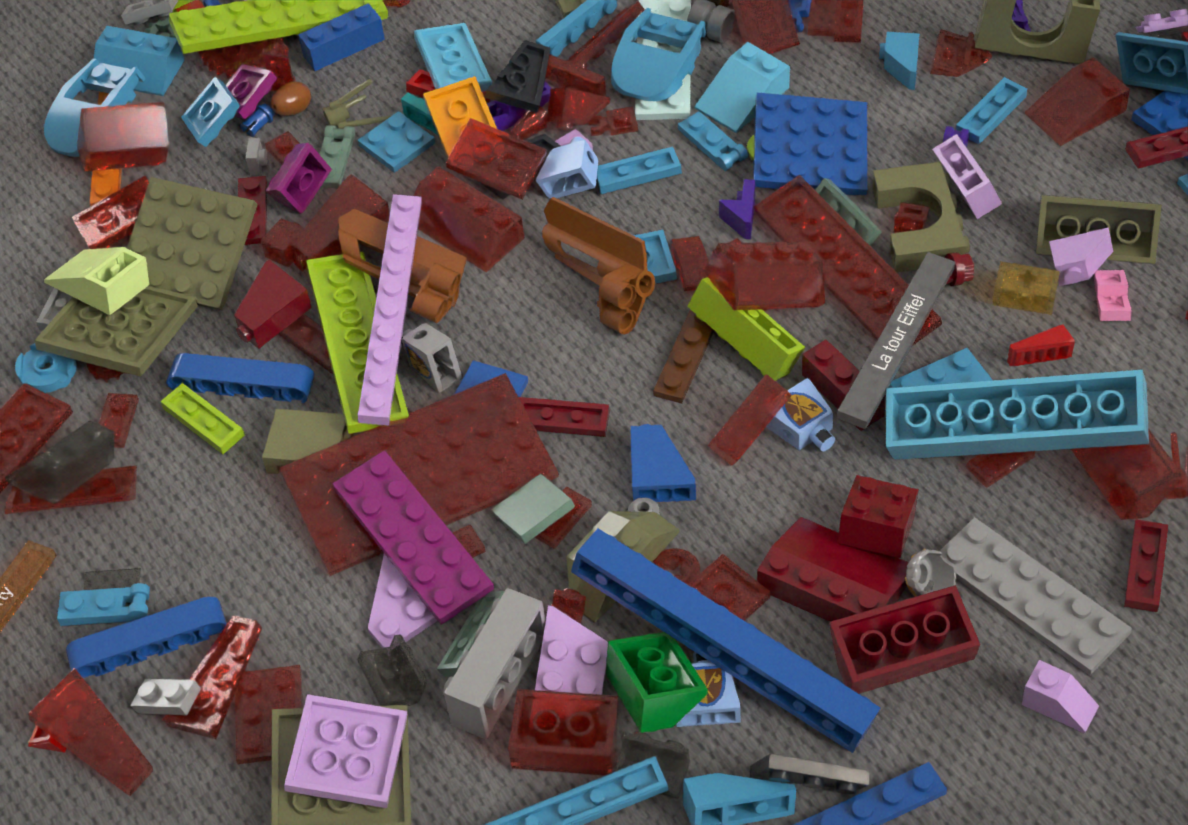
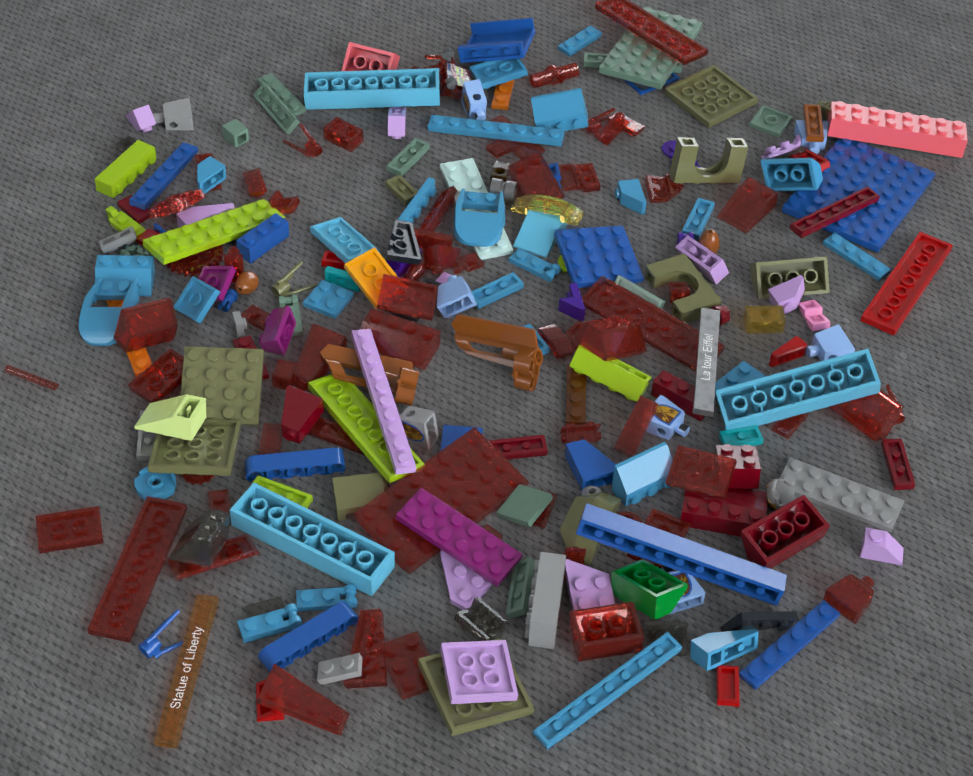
camera: 25 degrees left, 5 degrees down
(195, 584) = (325, 598): none -> dark azure plate
(213, 495) = (312, 539): none -> medium azure brick
(224, 338) = (270, 439): none -> clear red tile
(679, 412) = (587, 430): none -> clear red hinge
(728, 498) = (642, 474): none -> slope
(763, 55) = (550, 205): none -> clear yellow slope
(809, 514) = (701, 472): none -> clear red plate
(910, 469) = (742, 436): none -> teal plate
(975, 766) = (851, 596): none -> clear red torso
(989, 151) = (710, 240): none -> dark orange animal
(1115, 347) = (830, 344): none -> light blue torso

